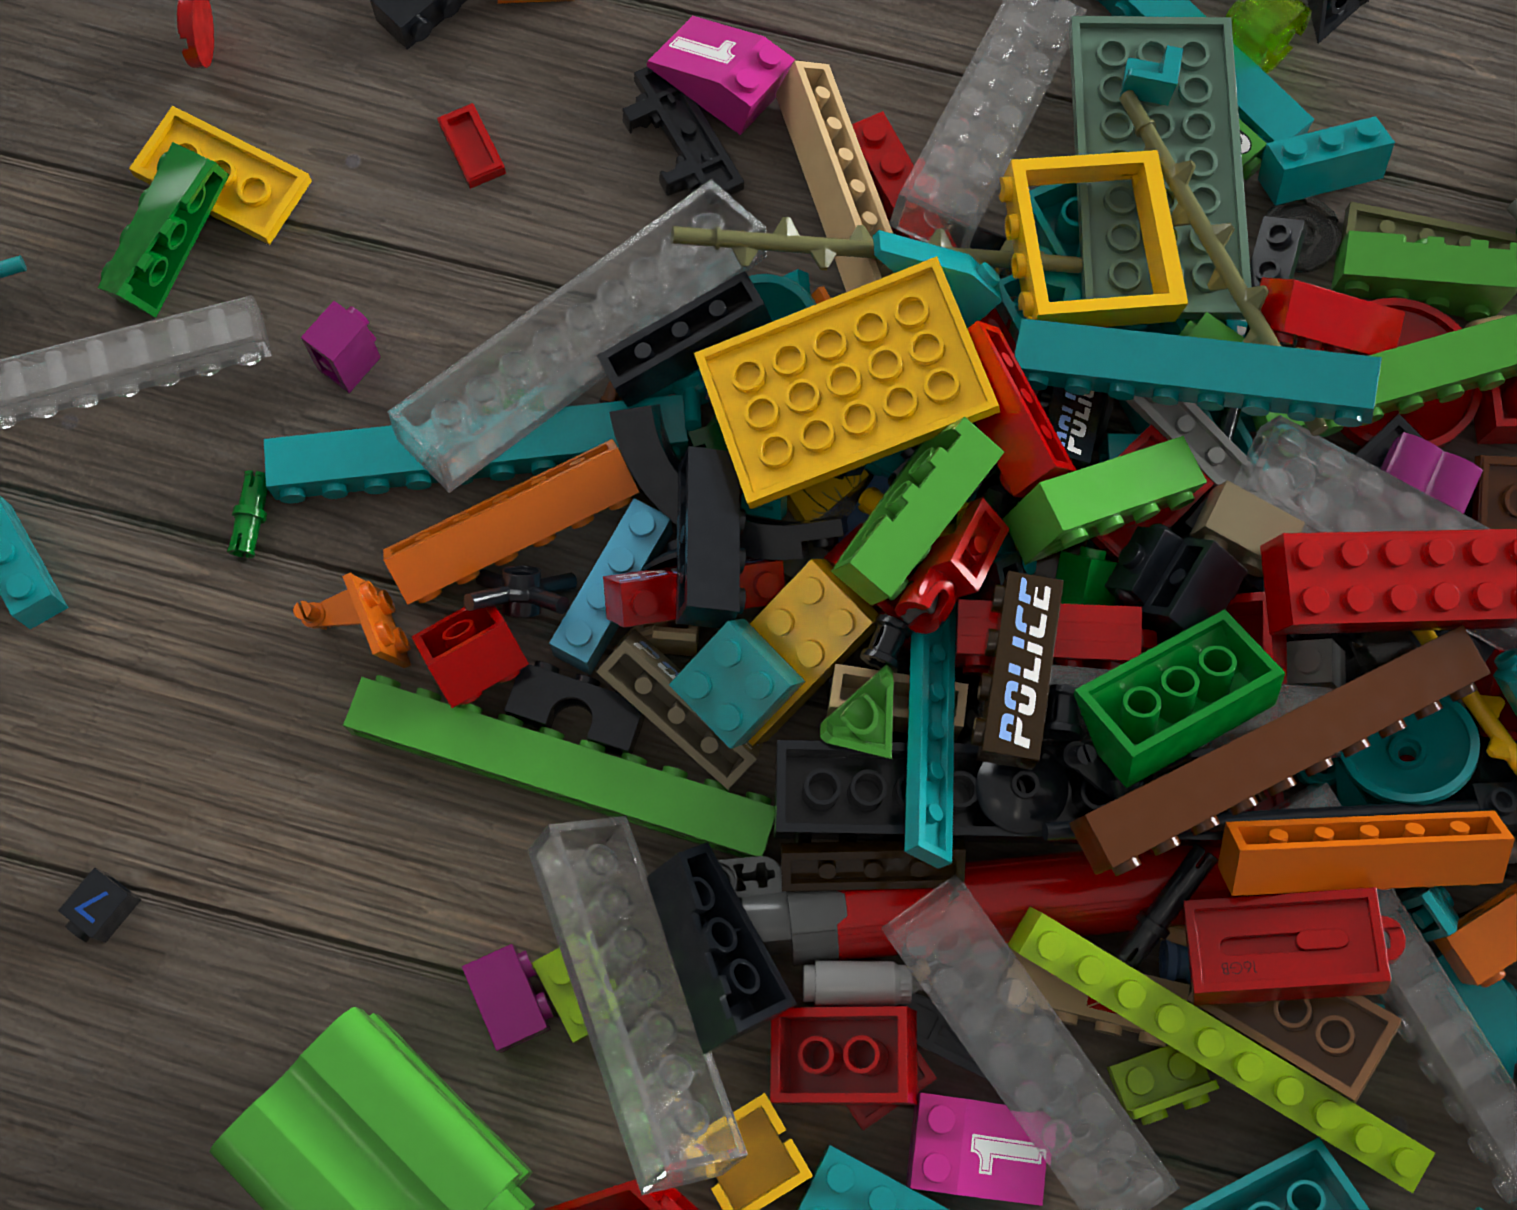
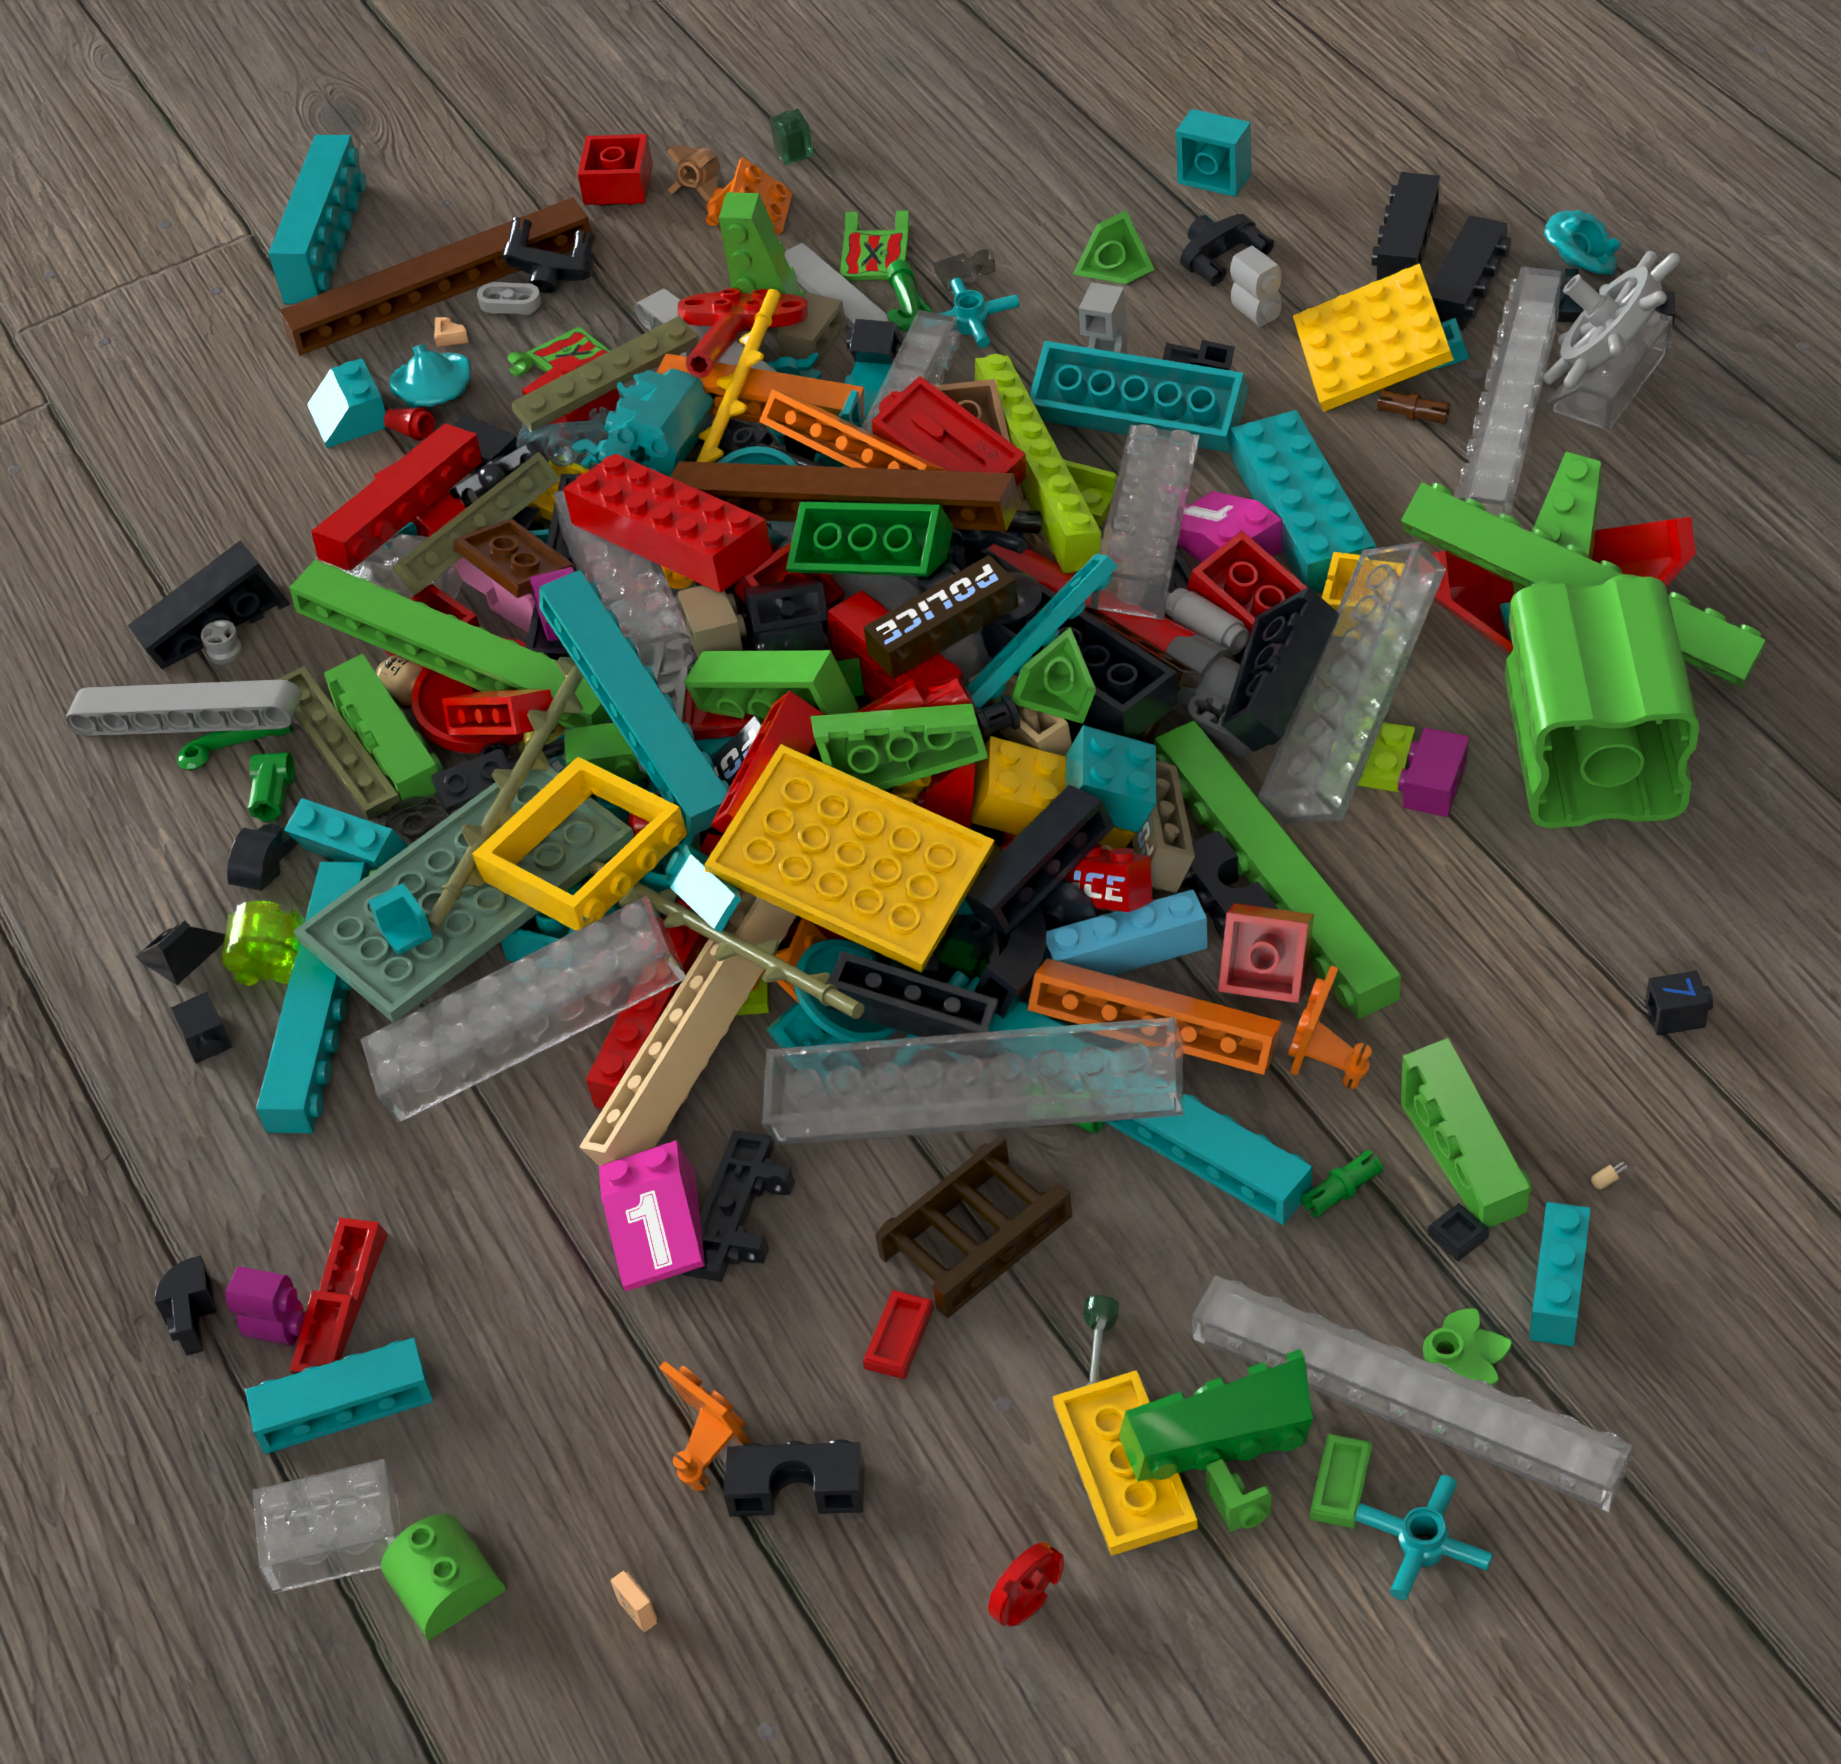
camera: 125 degrees left, 25 degrees down
(42, 456) = (1472, 1348): none -> bright green plate
(49, 693) = (1606, 1176): none -> tan piece
(61, 286) = (1341, 1480): none -> bright green tile
(110, 201) = (1231, 1500): none -> bright green bracket
(129, 548) = (1458, 1232): none -> black tile
(172, 616) = (1462, 1134): none -> bright green wedge
(335, 264) = (1099, 1315): none -> clear green hinge
(342, 345) = (1157, 1222): magenta brick -> none
(457, 234) = (984, 1260): none -> dark brown fence
(521, 591) = (1192, 963): black bar -> none
(1380, 94) = (256, 856): none -> black brick
(1468, 174) = (269, 778): none -> green piece

